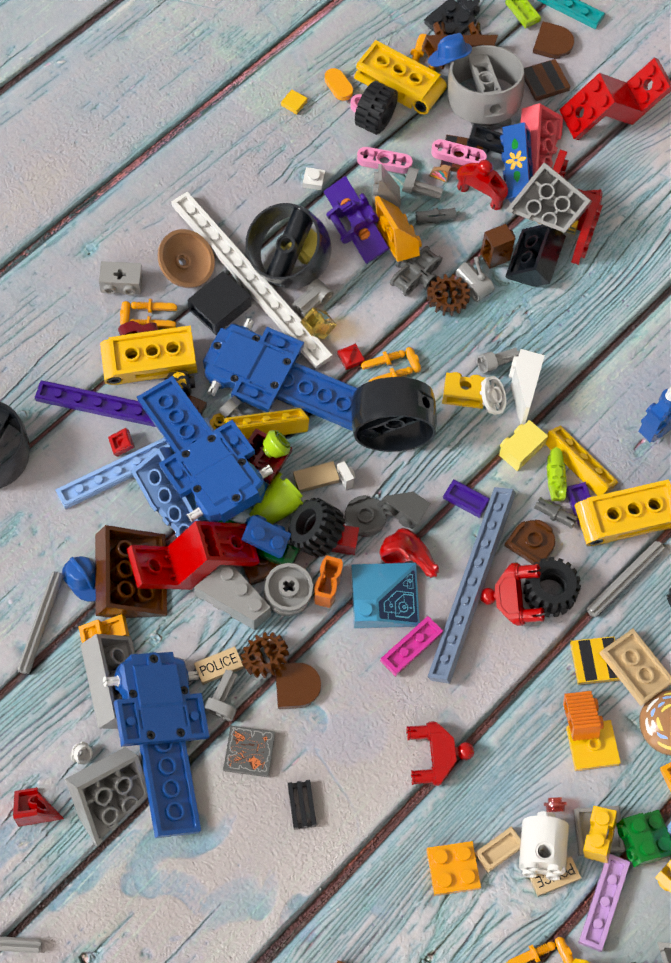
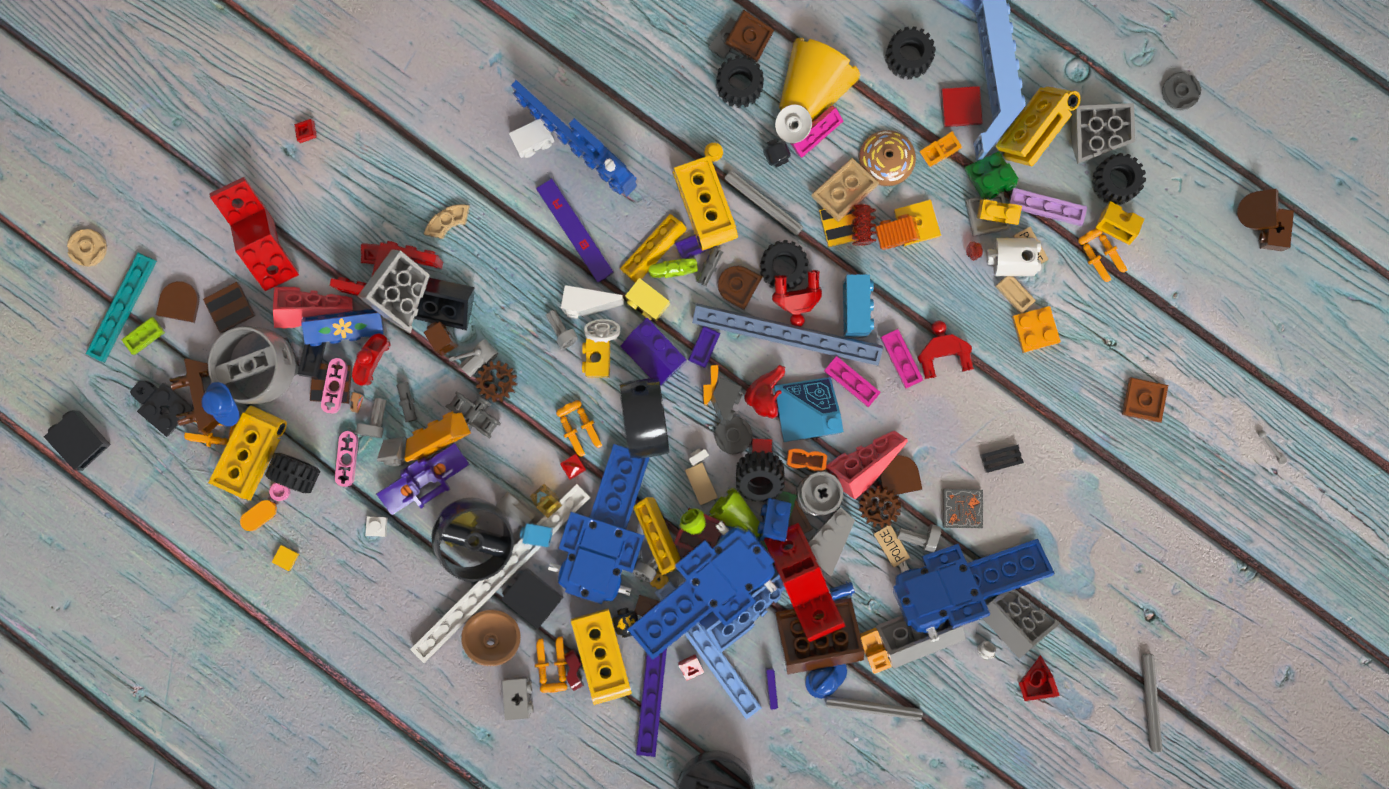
camera: 90 degrees left, 20 degrees up
(83, 517) = (771, 685): none -> dark purple tile
(176, 604) = (842, 590): none -> blue pin
(284, 305) = (536, 535): none -> dark azure slope
(310, 640) = (862, 468): none -> coral wedge
(432, 704) = (901, 358): none -> dark pink plate
(437, 500) = (709, 389): none -> light orange slope
(466, 446) = (653, 352): none -> dark purple slope
(498, 656) = (857, 306): none -> dark azure brick
(593, 676) = (863, 225): none -> clear red piece
(604, 386) = (574, 230): none -> dark purple tile
(622, 269) = (446, 219): none -> tan tile

